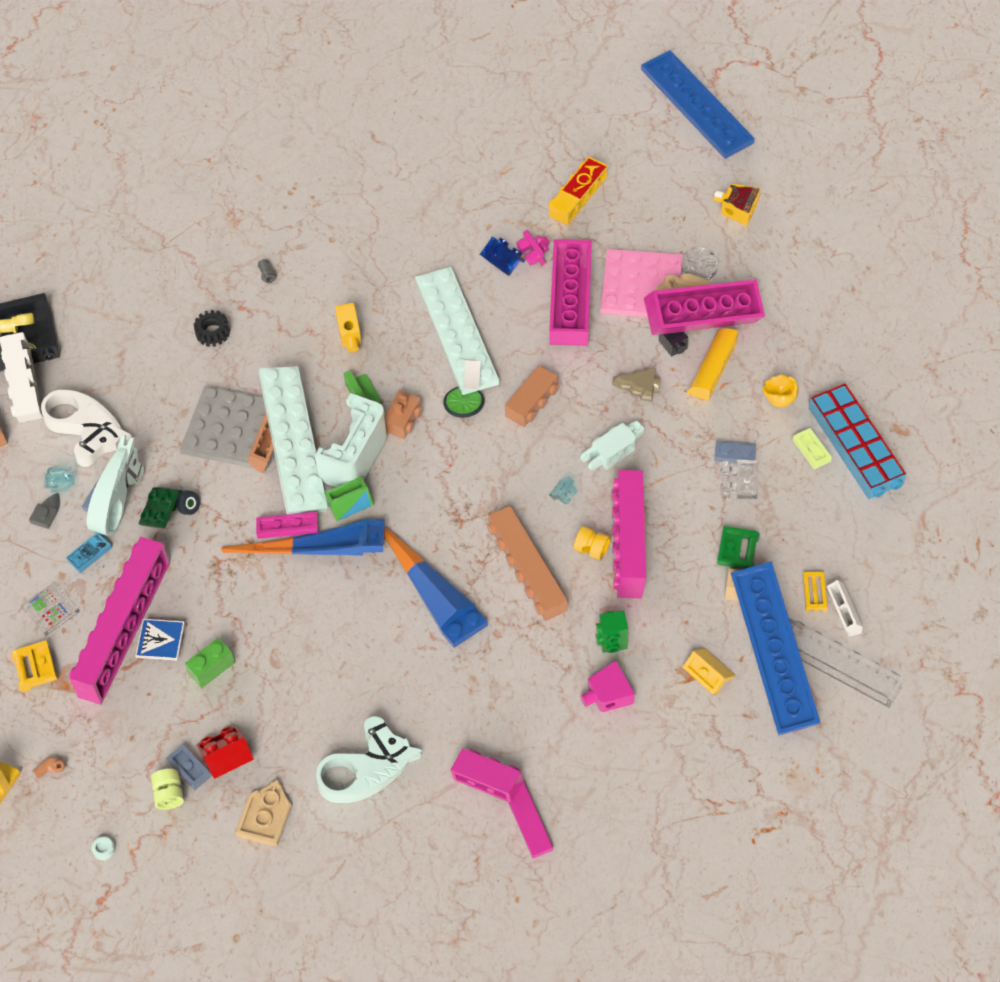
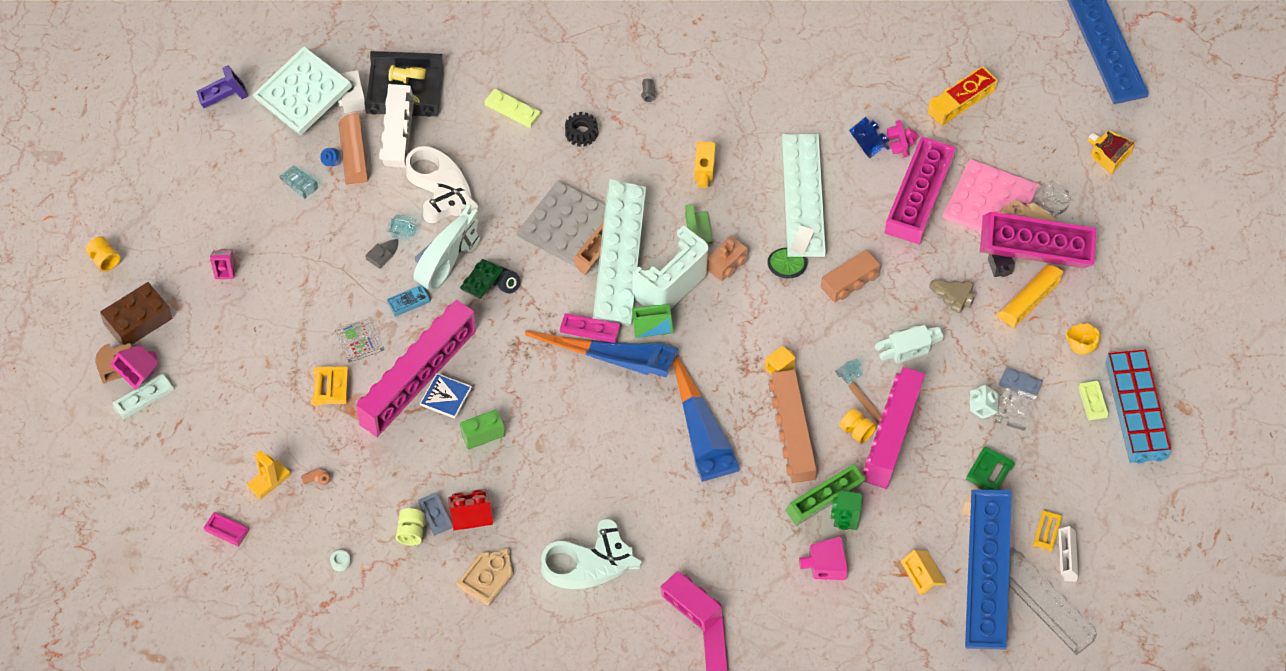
camera: 15 degrees right, 0 degrees up
(134, 327) = (512, 108): none -> yellowish green plate
(491, 501) = (780, 360): none -> yellow brick
(583, 623) = (823, 495): none -> bright green brick
(590, 517) = (866, 403): none -> medium nougat bar
(707, 481) = (984, 401): none -> light aqua brick

